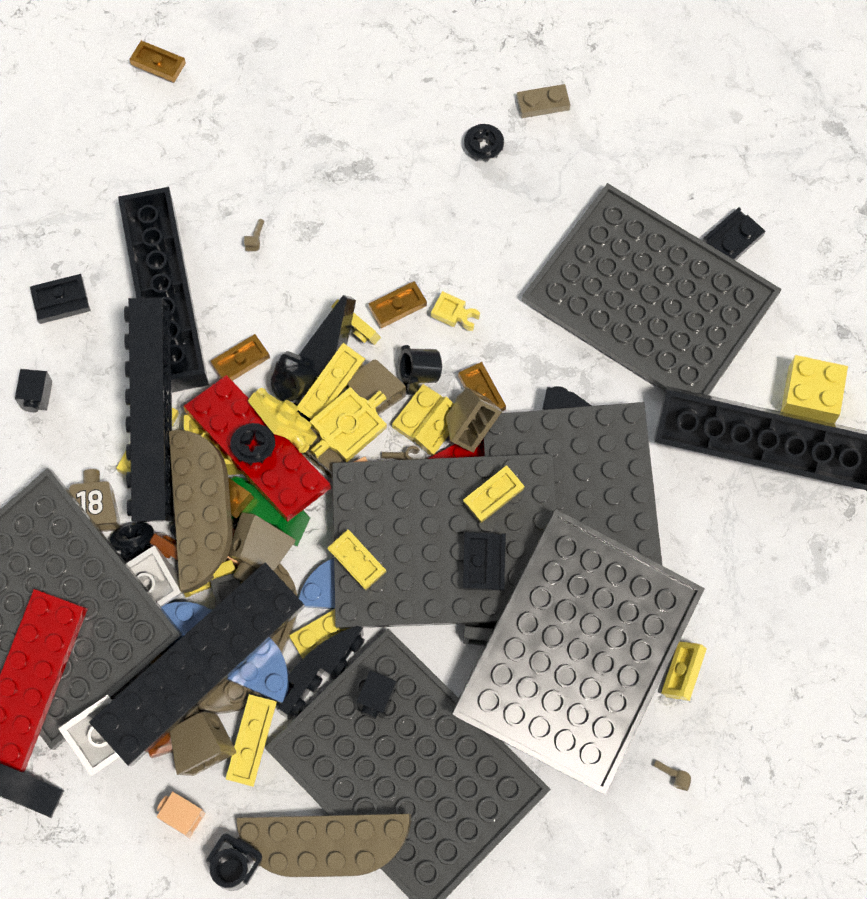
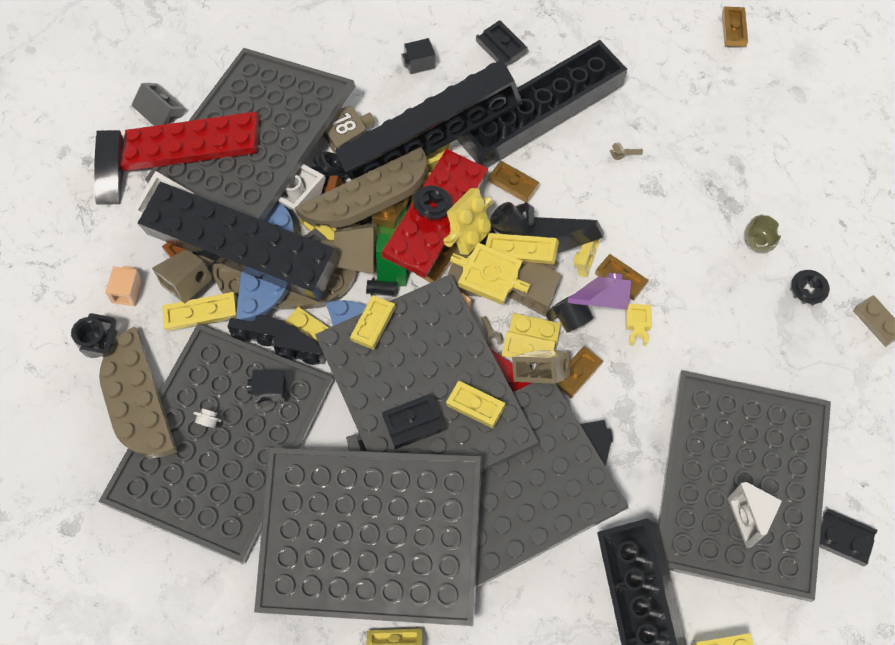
camera: 65 degrees right, 5 degrees down
(301, 548) = (377, 287): none -> black pin
(386, 770) = (207, 418): none -> white plate
(412, 155) = (762, 233): none -> olive hair
(419, 327) = (604, 292): none -> medium lavender slope
(695, 299) = (753, 512): none -> white slope

